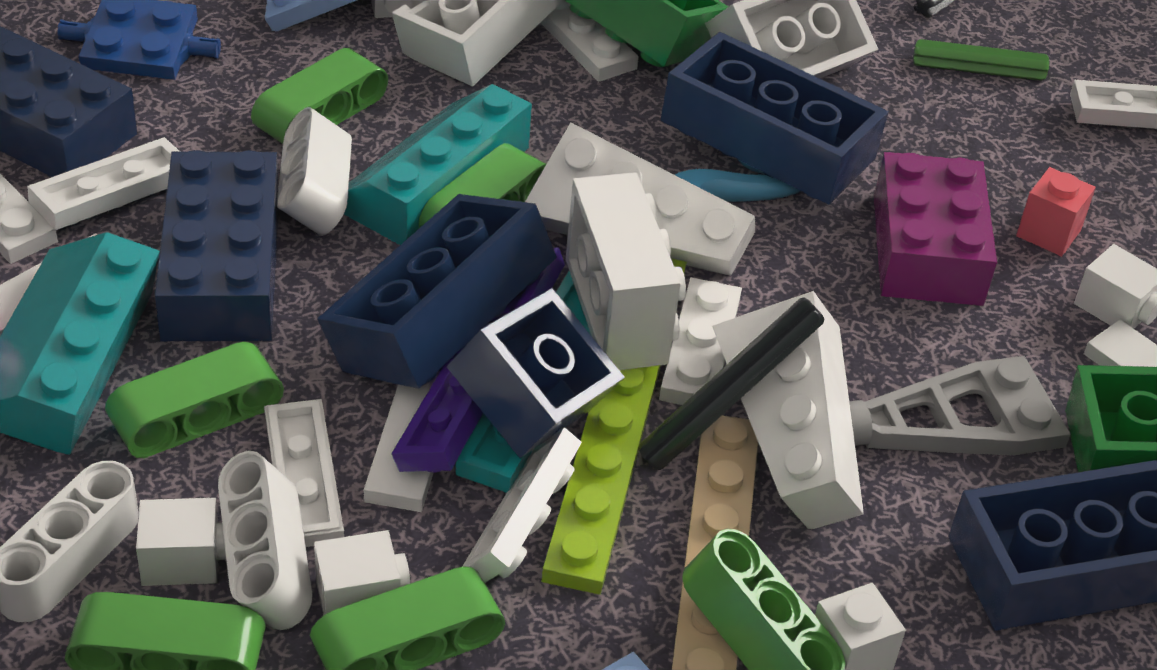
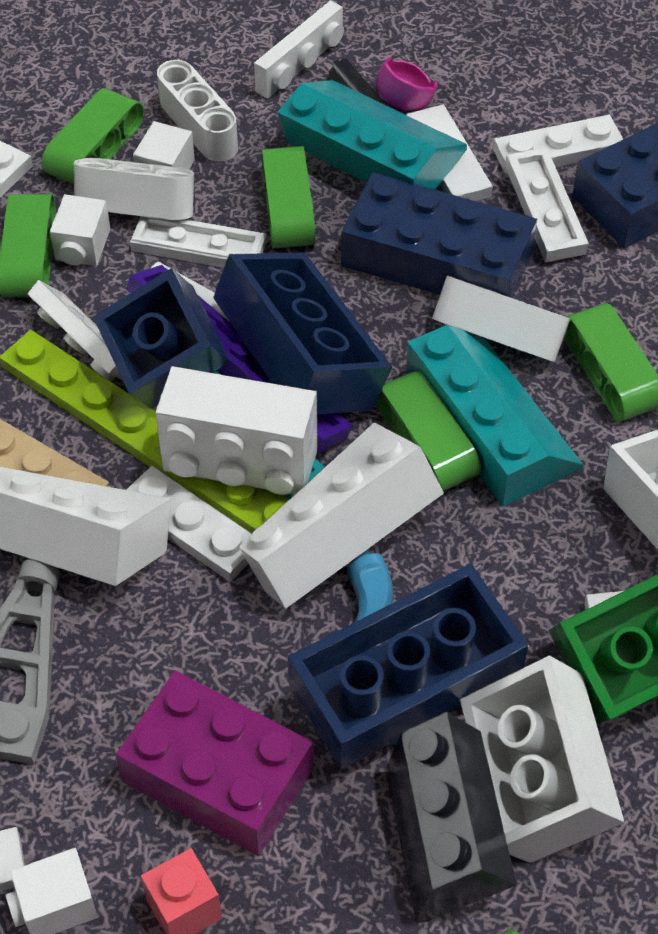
camera: 120 degrees right, 10 degrees up
(731, 383) = (87, 466): black axle -> none
(892, 66) = (447, 817): none -> black slope

